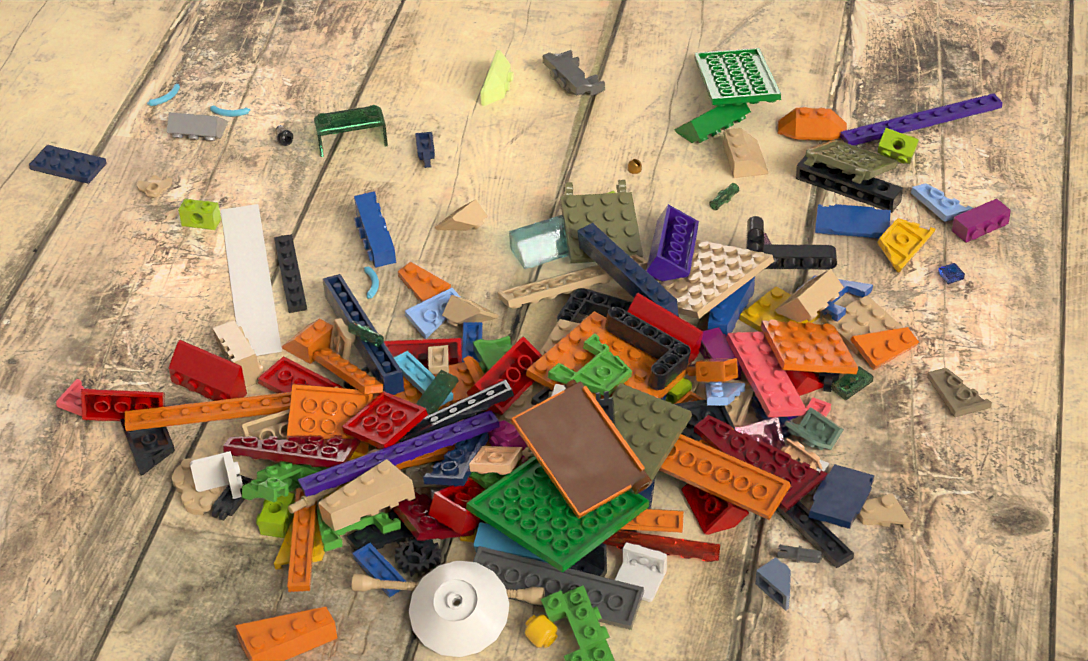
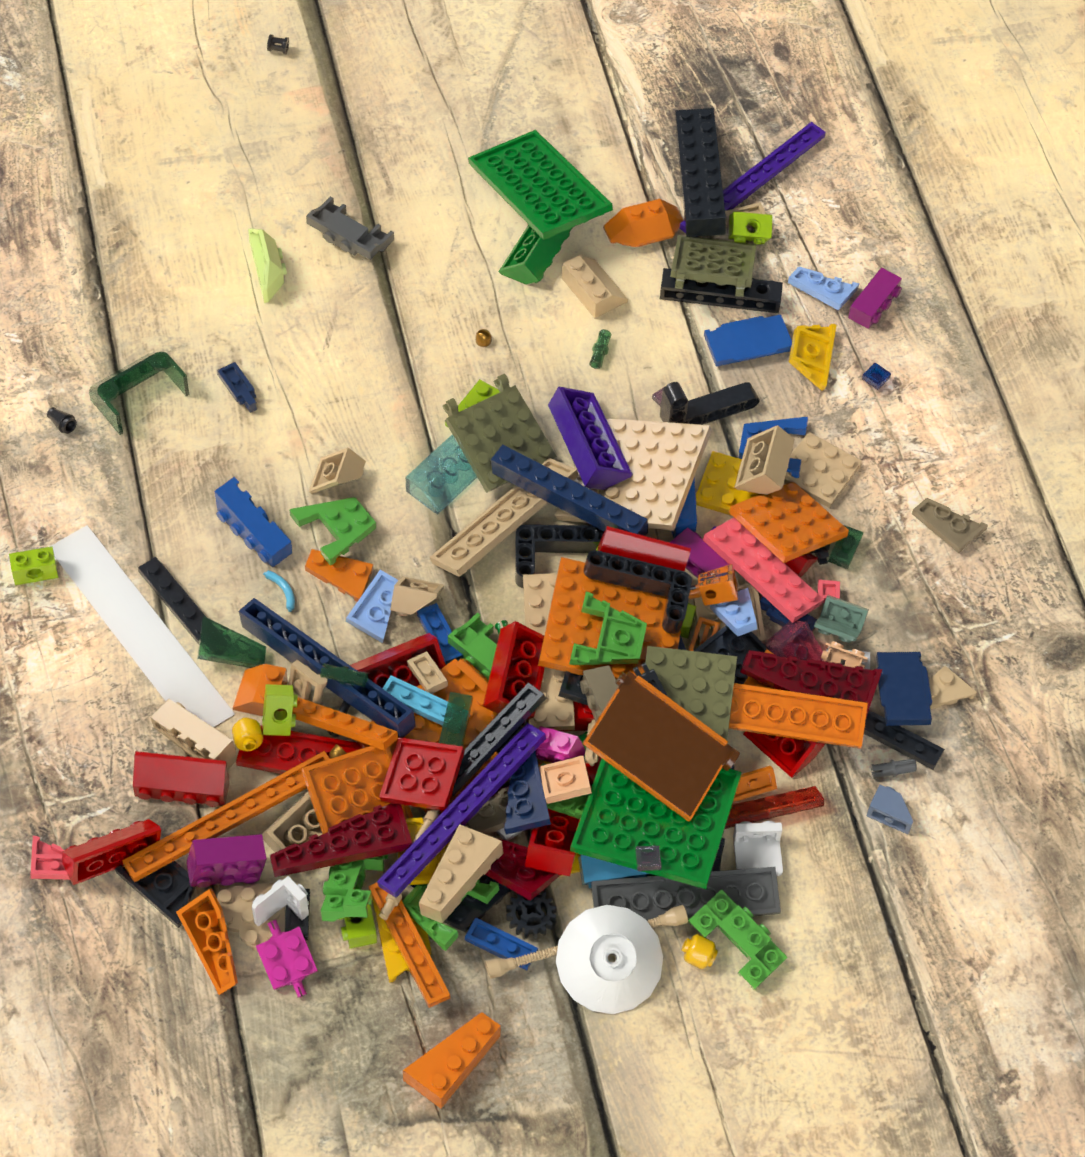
camera: 30 degrees left, 15 degrees up
(155, 478) = (208, 933): none -> orange wedge
(197, 433) = (226, 860): none -> magenta brick
(203, 520) = (286, 958): none -> dark pink plate
(274, 360) = (247, 734): none -> yellow head
(299, 356) = (277, 698): none -> lime brick
(302, 302) = (228, 647): none -> clear green wing
(444, 250) = (343, 518): none -> bright green wing
(524, 530) = (648, 858): none -> tile
(875, 101) = (700, 172): none -> black brick
(884, 345) = (855, 491): orange wing -> none

